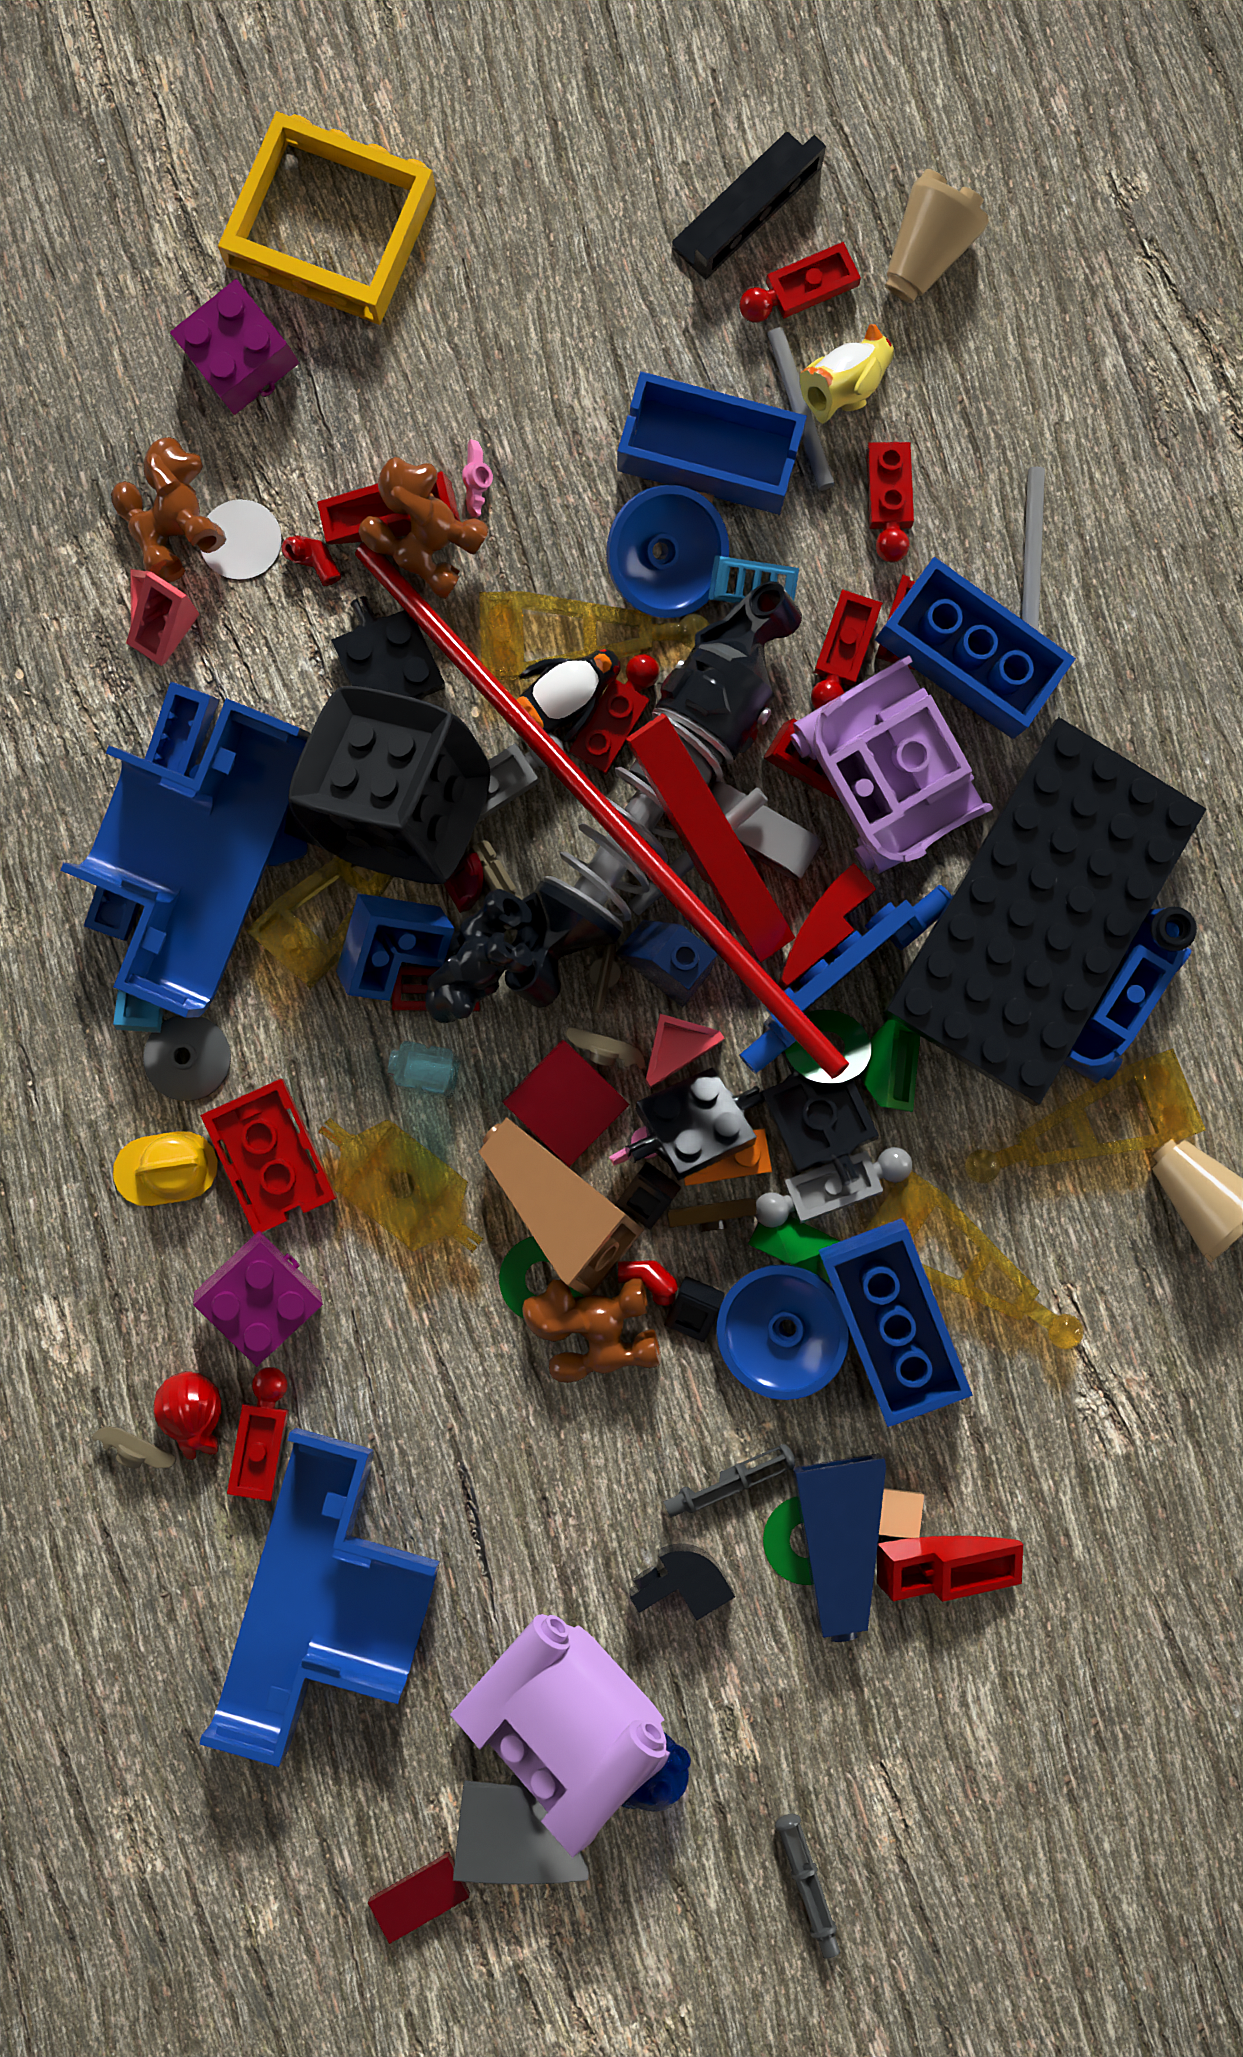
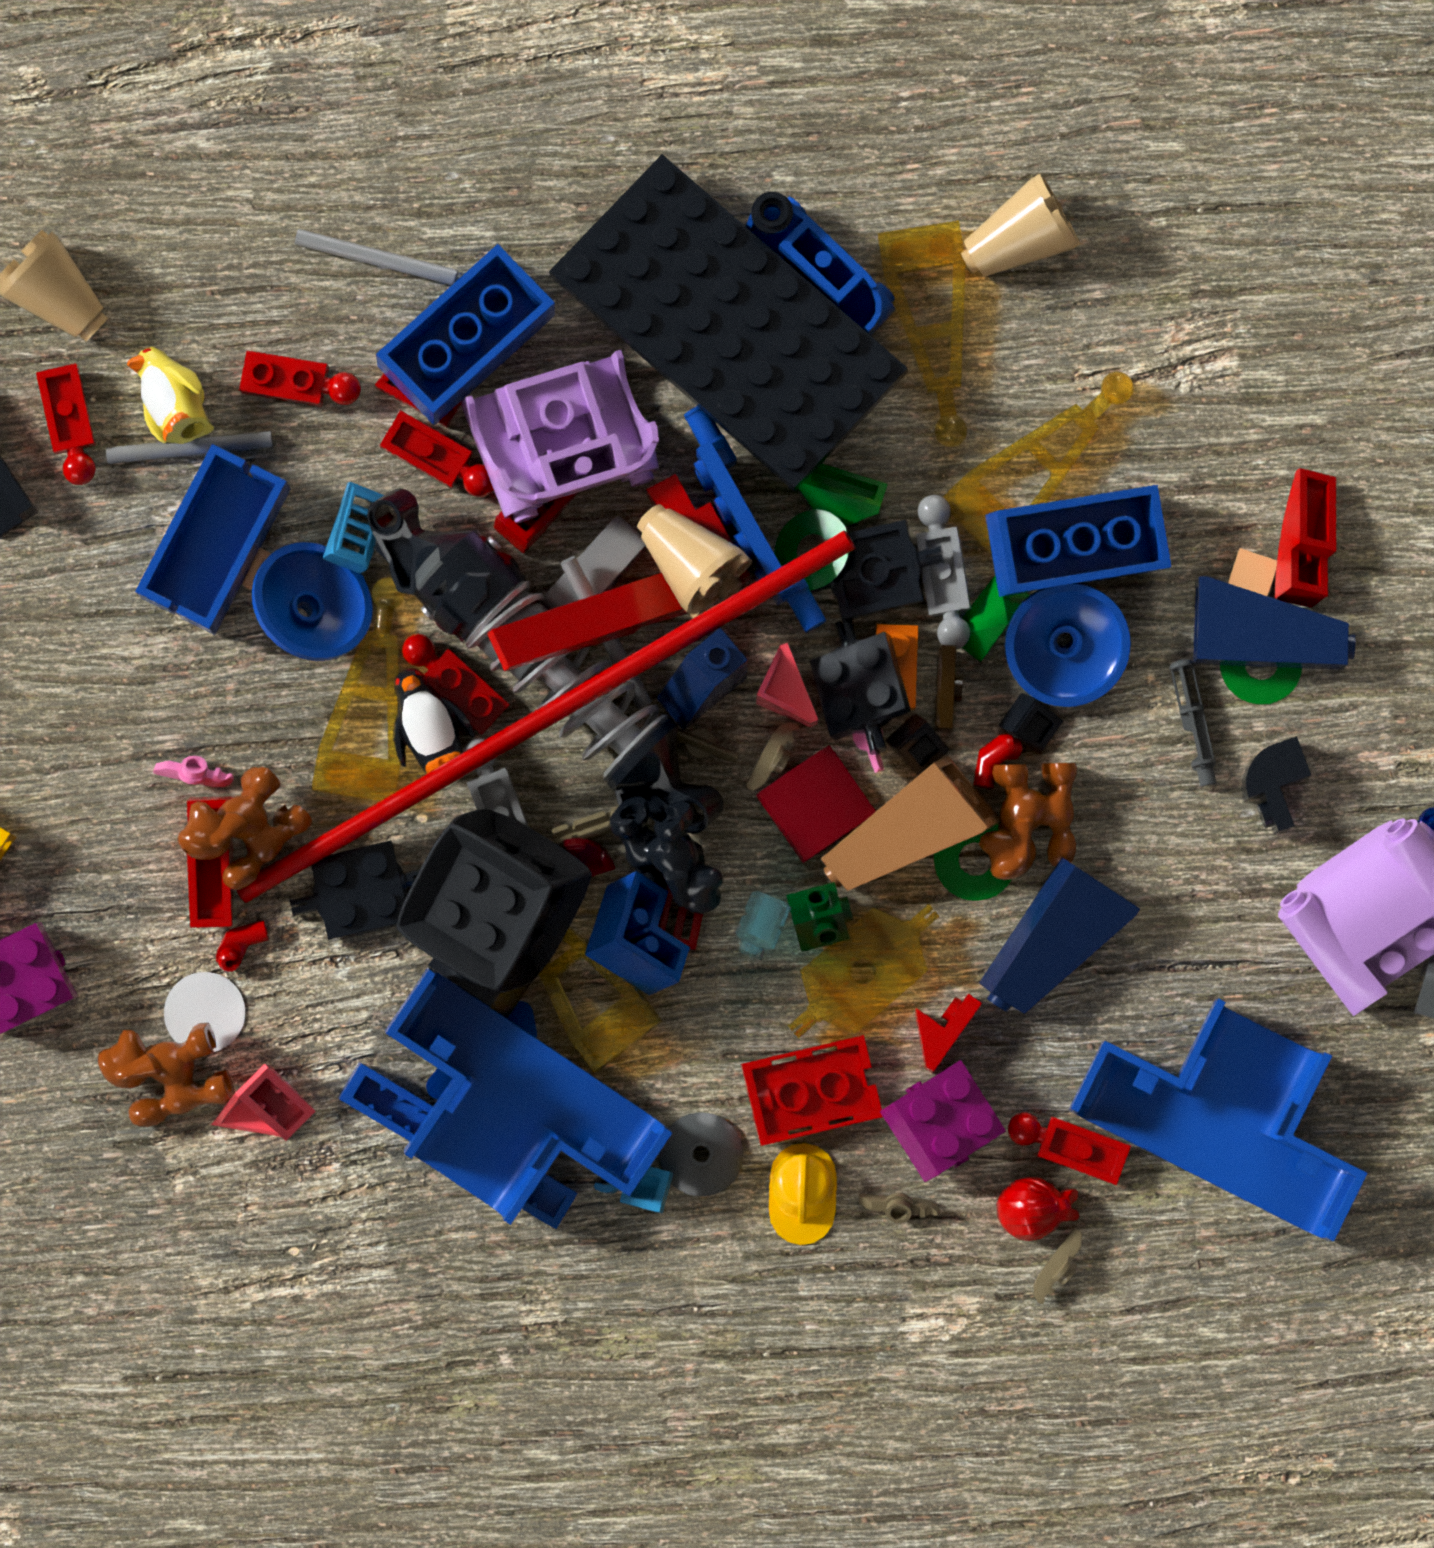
camera: 75 degrees left, 0 degrees up
(167, 1270) = (898, 1206): none -> dark tan piece
(345, 1278) = (936, 1039): none -> red slope
(447, 1128) = (819, 916): none -> dark green brick
(473, 1378) = (1054, 937): none -> dark blue slope
(789, 920) = (692, 559): none -> tan cone

